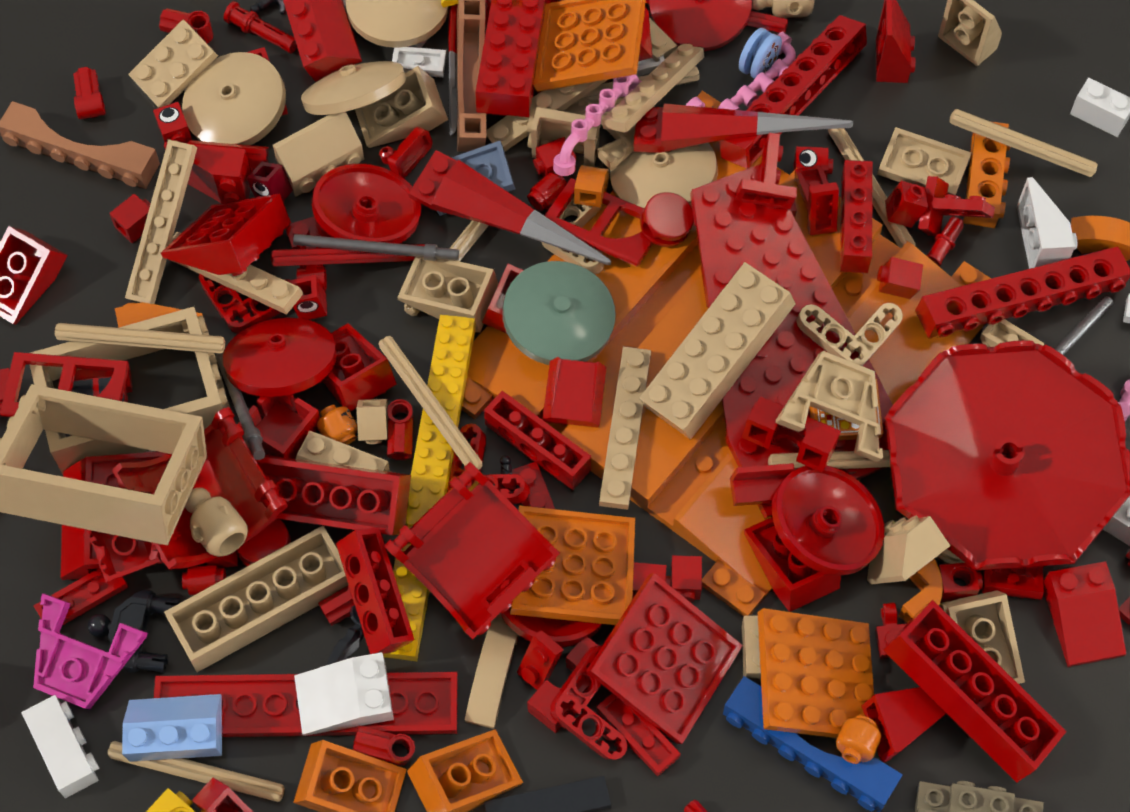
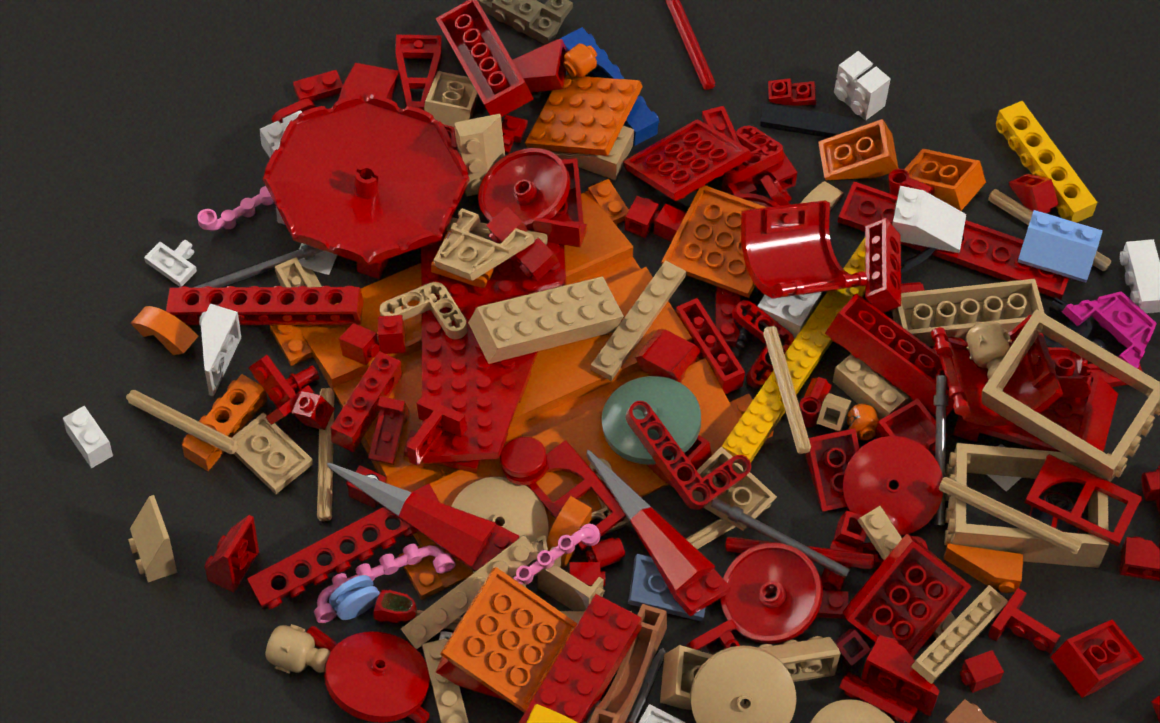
camera: 160 degrees left, 5 degrees down
(102, 277) = (1023, 625): none -> red bracket
(505, 254) = (681, 462): none -> red beam
(719, 64) = (394, 607): none -> red rock
(873, 294) = (392, 334): none -> red brick
(1068, 701) = (417, 47): none -> red plate

